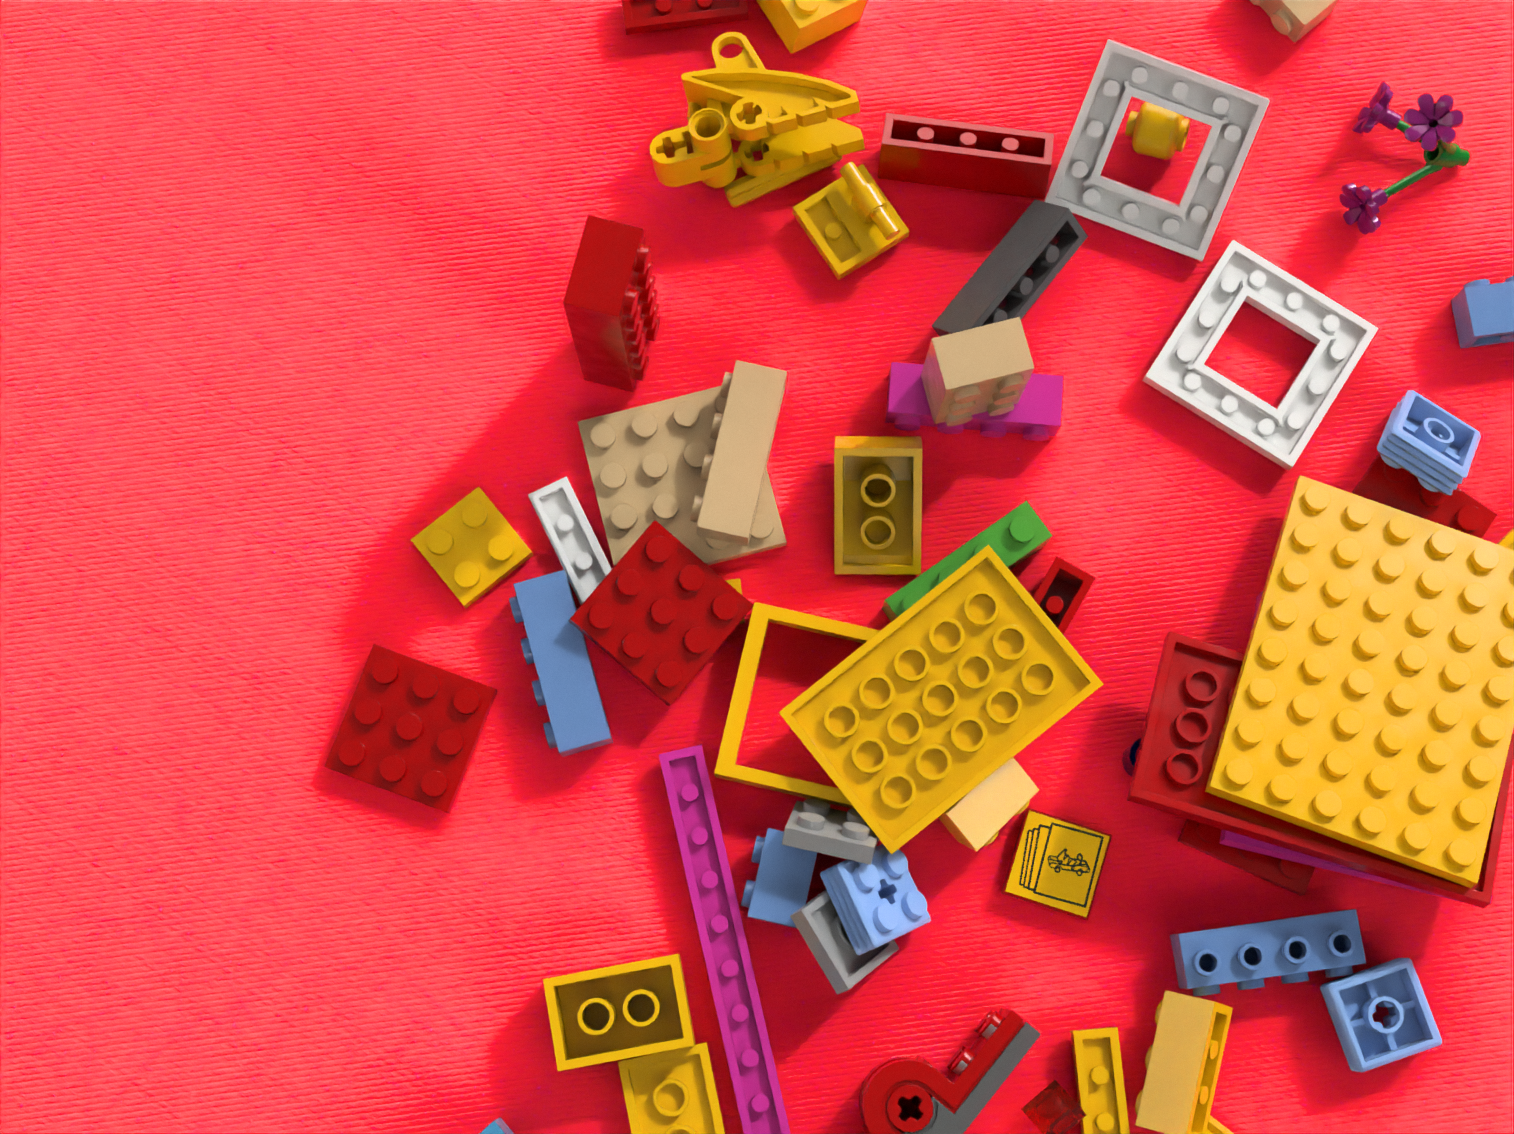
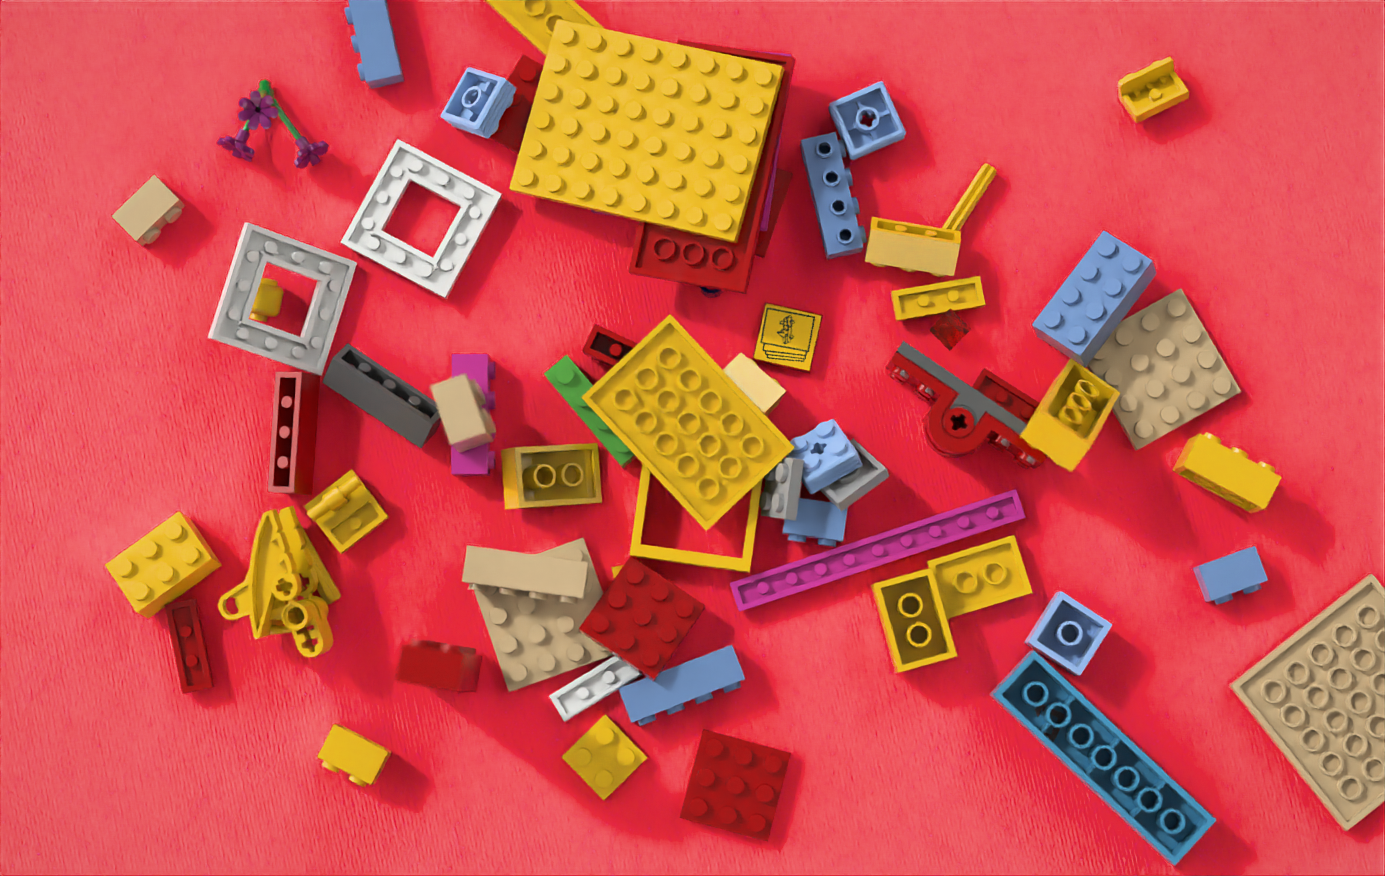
camera: 90 degrees left, 5 degrees up
(512, 204) = (354, 755): none -> yellow brick

